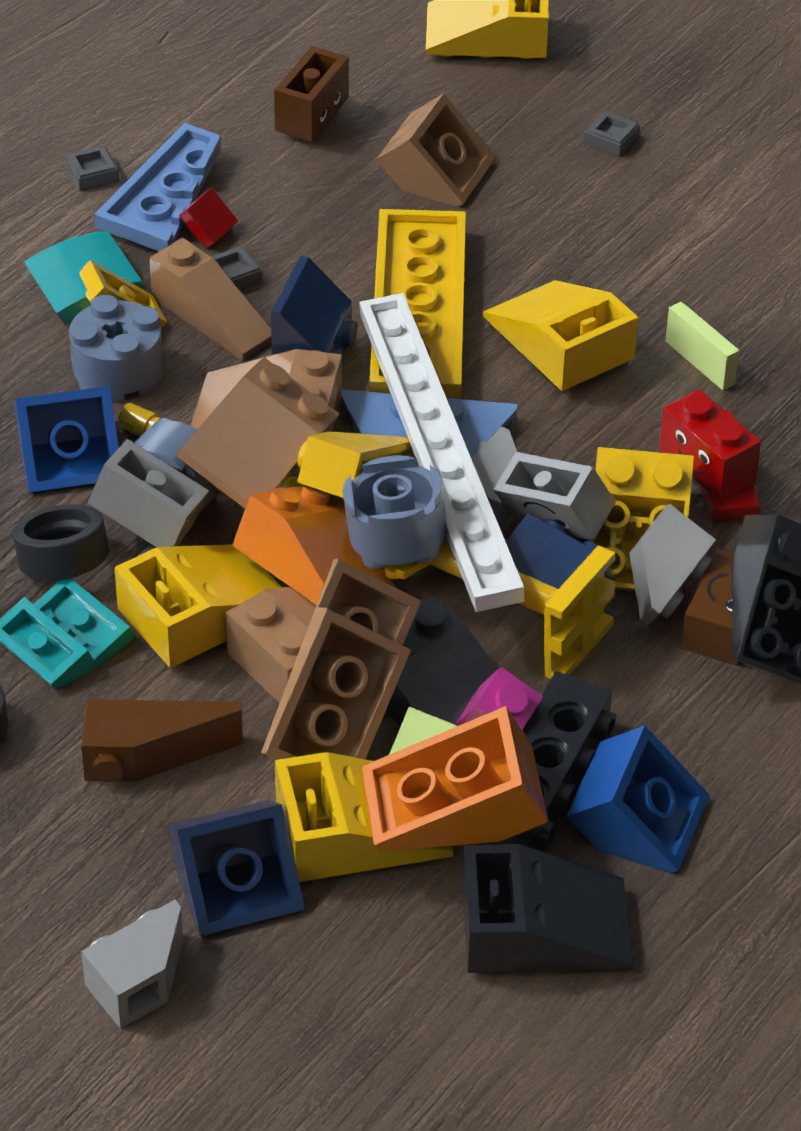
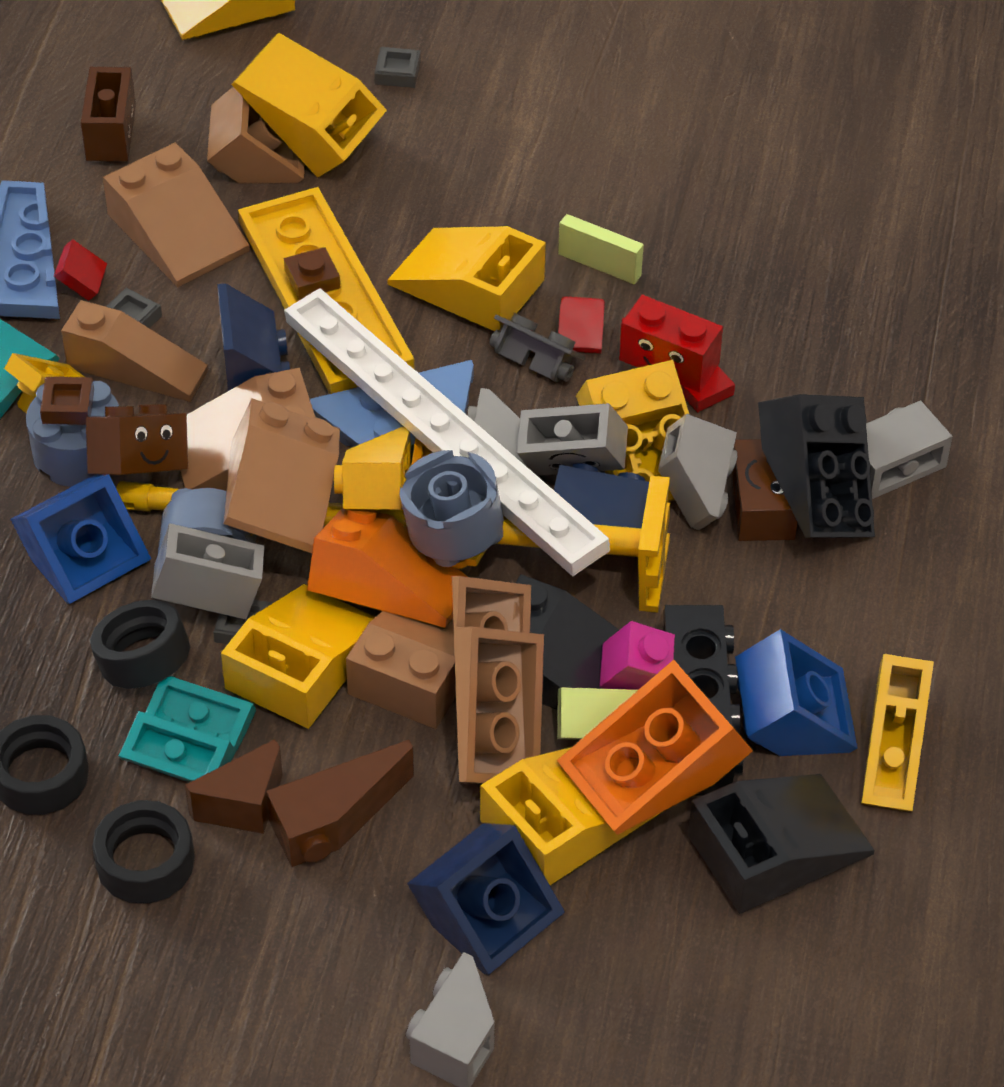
camera: 25 degrees left, 5 degrees up
(60, 692) = (237, 791): none -> reddish brown slope
(108, 312) = (67, 400): none -> reddish brown plate
(156, 370) = (136, 442): none -> reddish brown brick
(320, 196) = (173, 214): none -> medium nougat slope
(412, 279) = (311, 271): none -> reddish brown plate
(493, 133) = (309, 103): none -> yellow slope
(575, 399) = (552, 353): none -> dark grey hinge
(642, 406) = (582, 322): none -> red slope
(721, 865) = (897, 732): none -> yellow slope

